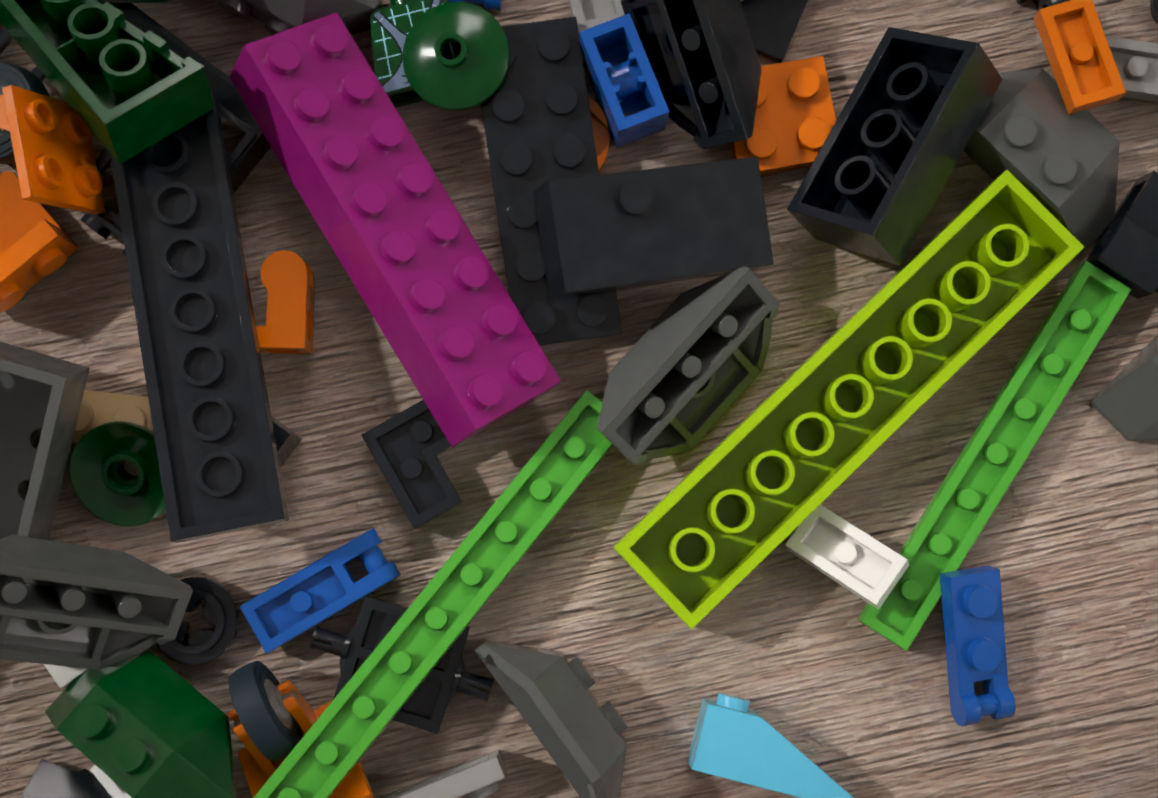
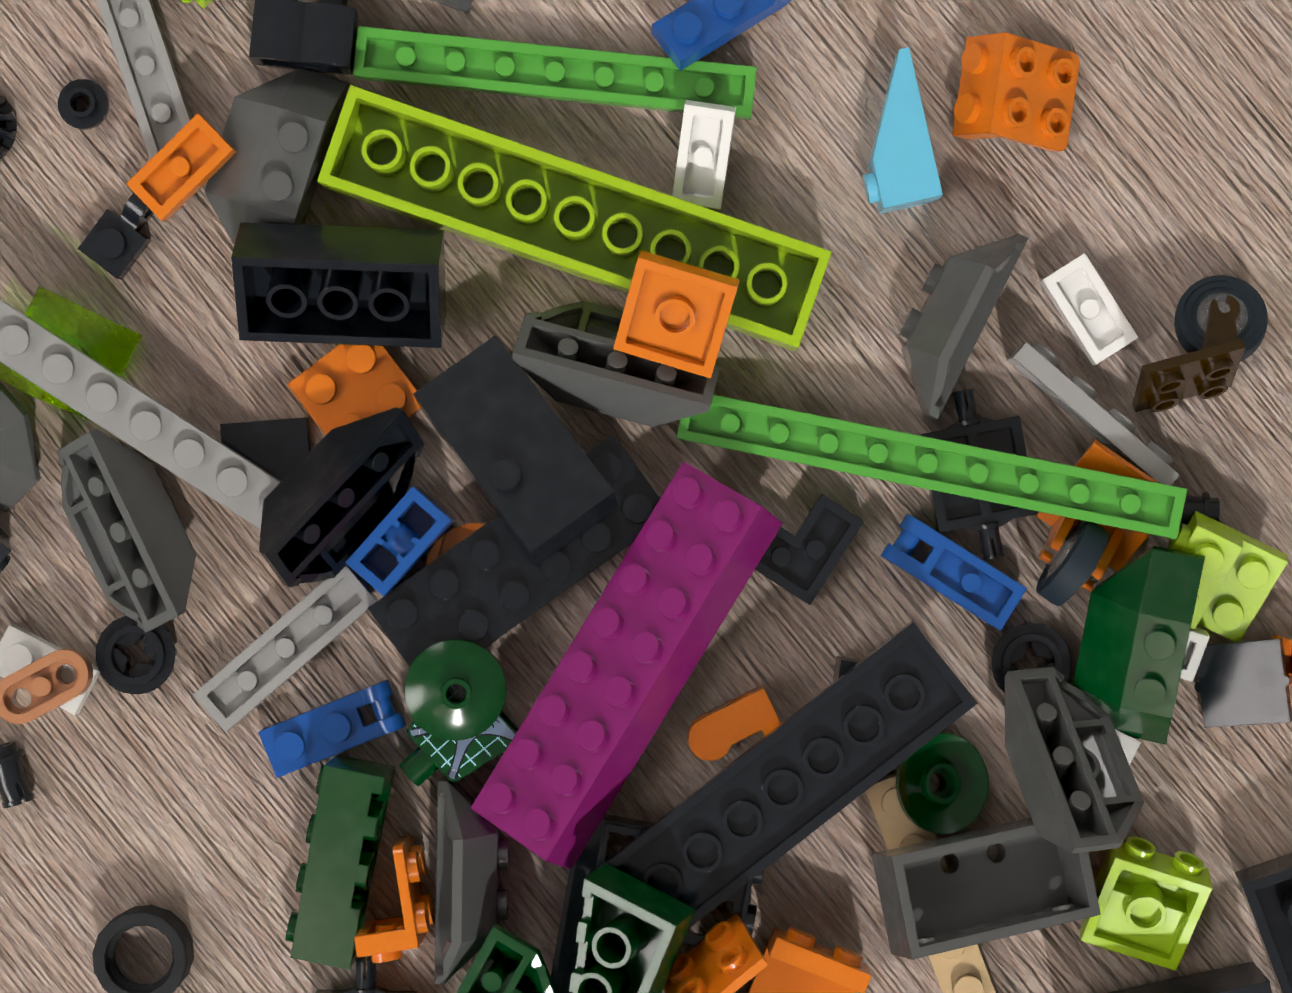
camera: 115 degrees left, 5 degrees up
(708, 443) = (676, 314): none -> orange plate

